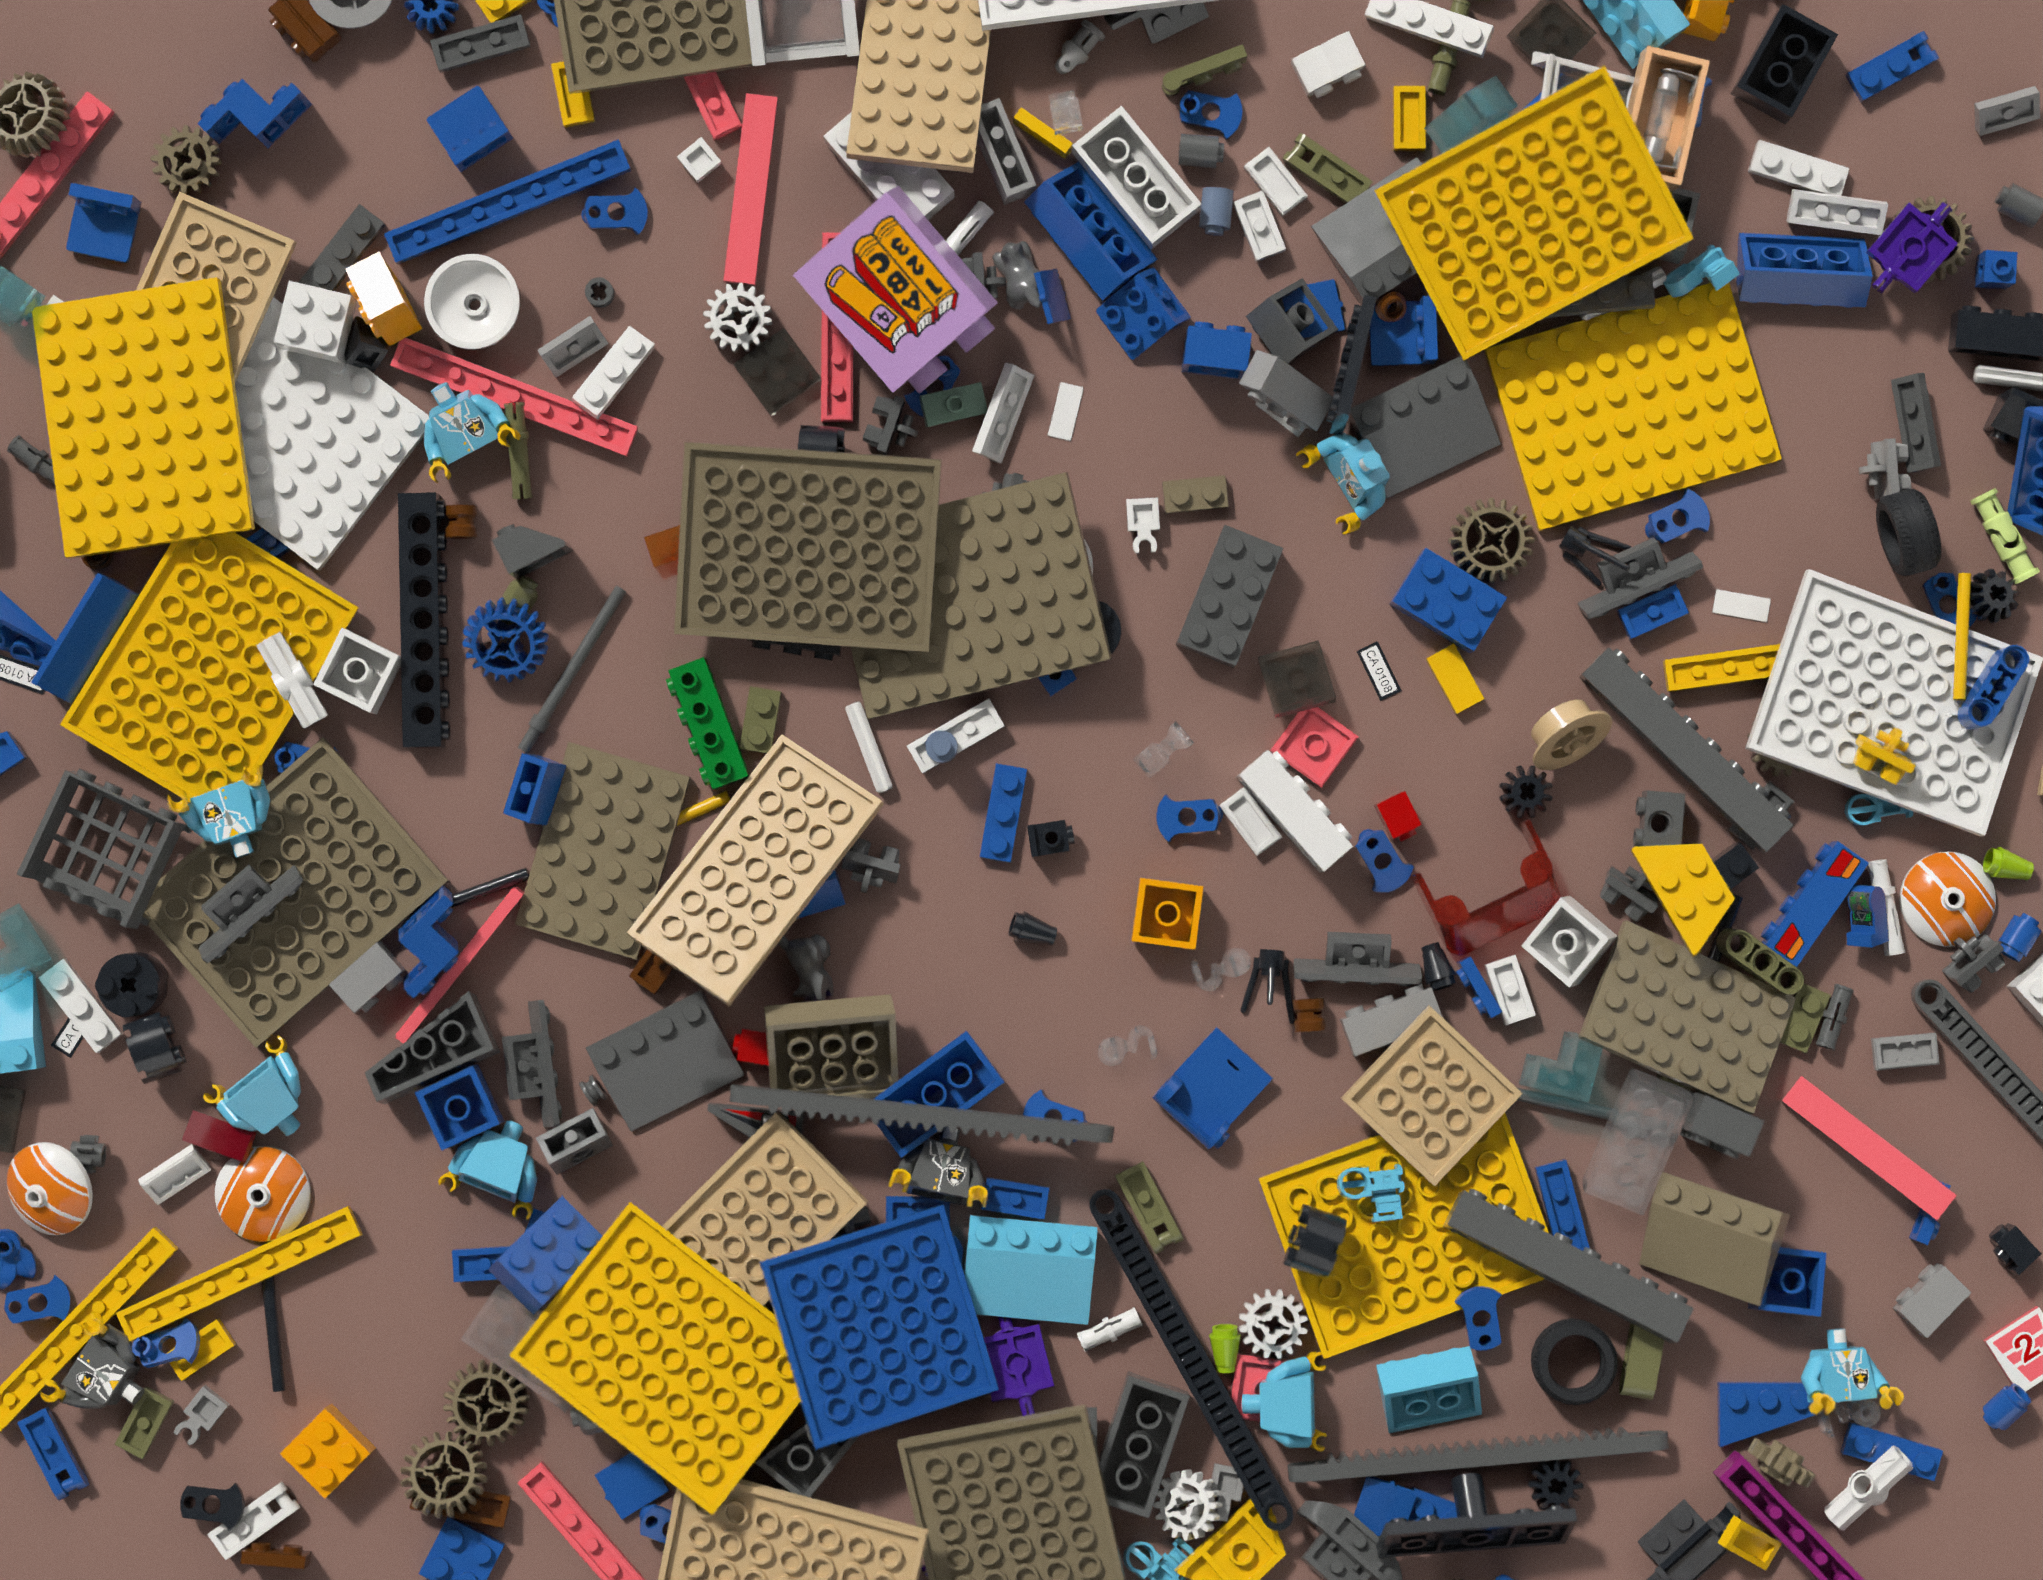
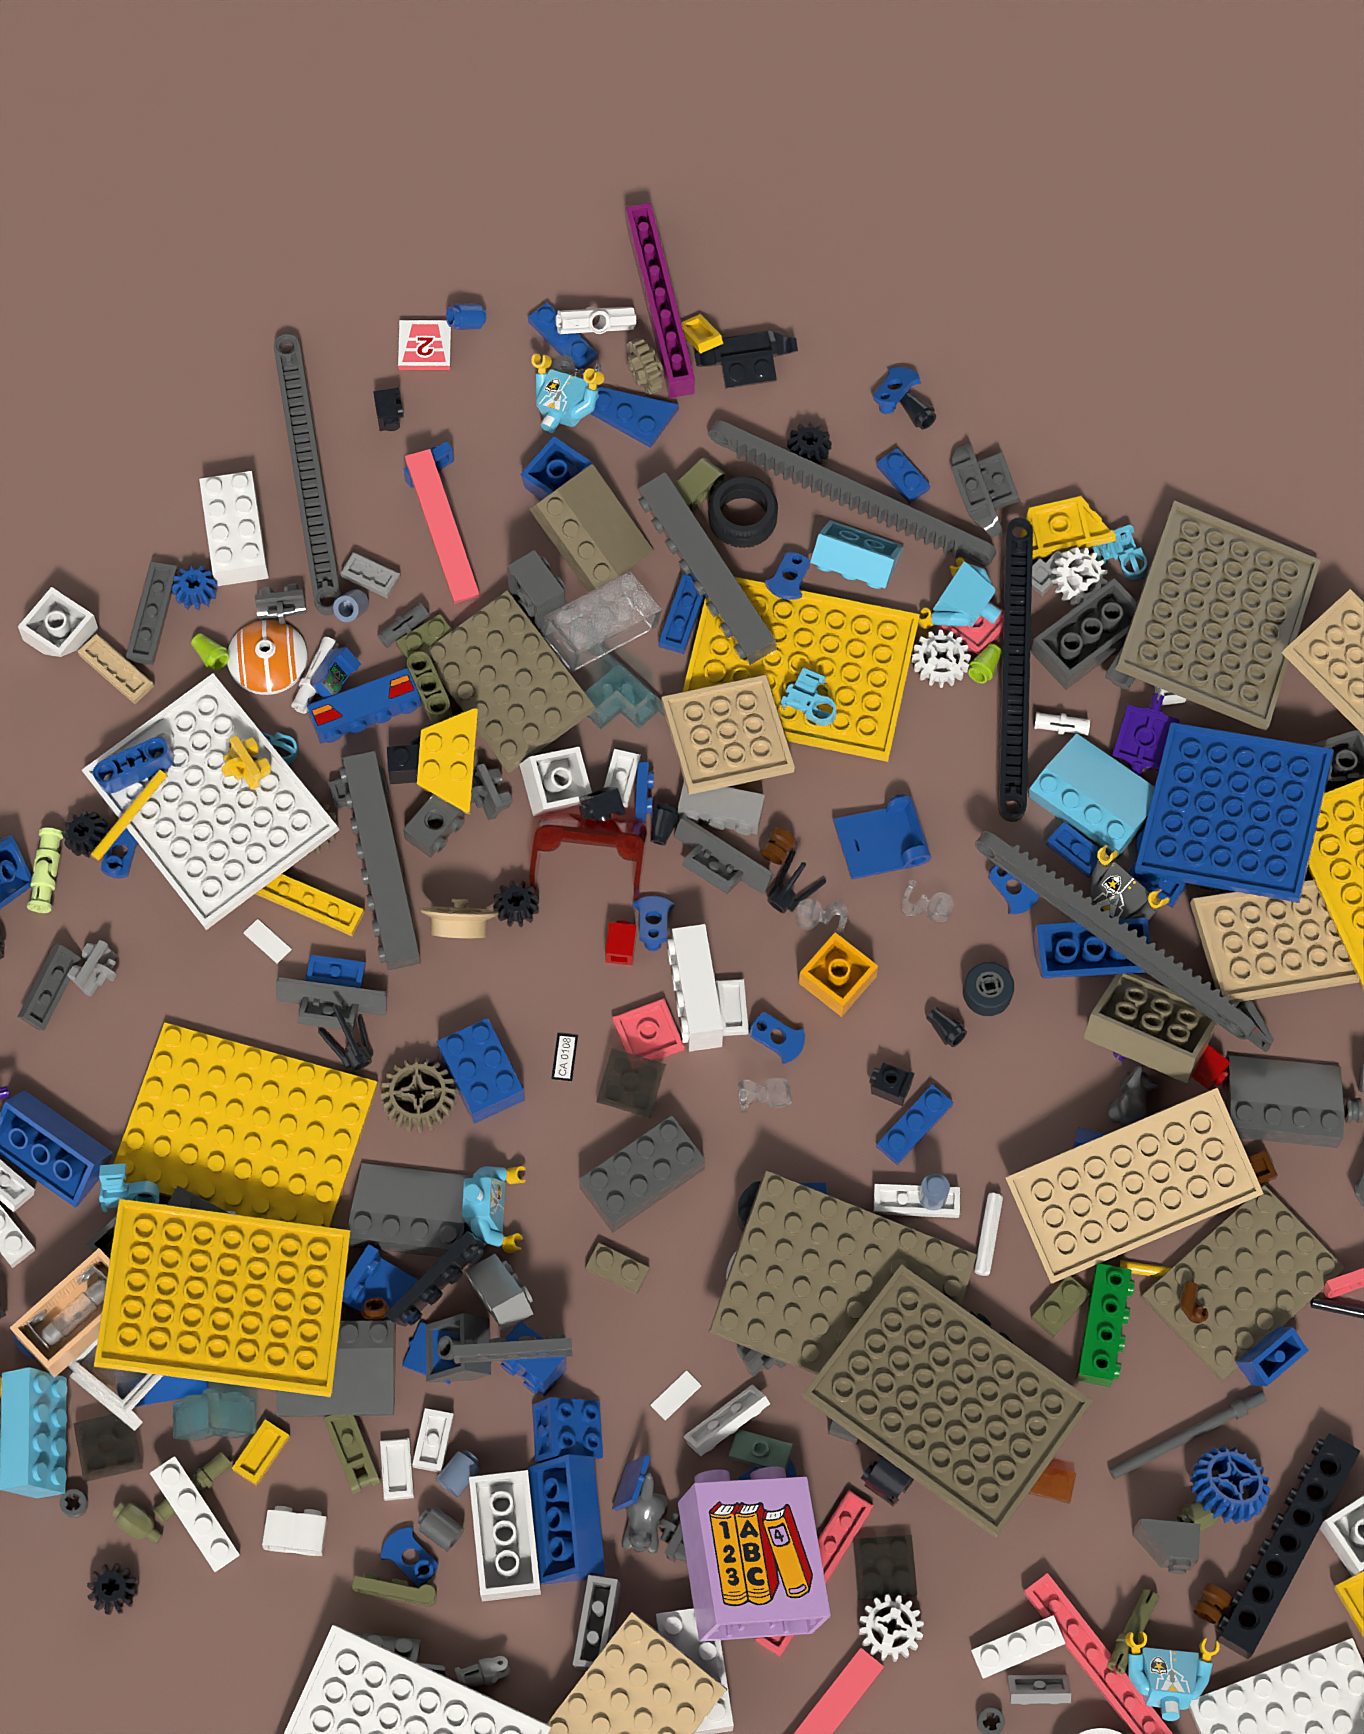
camera: 150 degrees left, 20 degrees down
(637, 789) = (1190, 1306): none -> reddish brown arm
(870, 869) = (1029, 1137): dark grey hips -> none
(891, 410) = (832, 1459): dark grey hips -> none
(969, 227) = (662, 1584): white pin -> none
(1014, 994) = (985, 999): none -> black wheel
(1042, 133) = (554, 1621): yellow tile -> none
(1065, 112) = (526, 1627): clear leg -> none
(1143, 518) = (669, 1273): white plate -> none
(1148, 1206) = (980, 788): olive plate -> none
(1246, 327) = (525, 1348): none -> dark grey plate
(1315, 1241) = (877, 684): black brick -> none
(1382, 1502) = (939, 497): blue piece -> none
(1454, 678) = (513, 1015): yellow tile -> none
(1474, 1527) = (883, 448): black plate -> none
(1508, 941) = (601, 804): none -> black brick
(1694, 510) = (253, 1027): blue piece -> none
(1900, 1000) = (350, 605): none -> sand blue brick
(1908, 532) = (113, 907): black tyre -> none
(1930, 1299) = (468, 410): light grey brick -> none
(2019, 937) = (236, 600): blue brick -> none

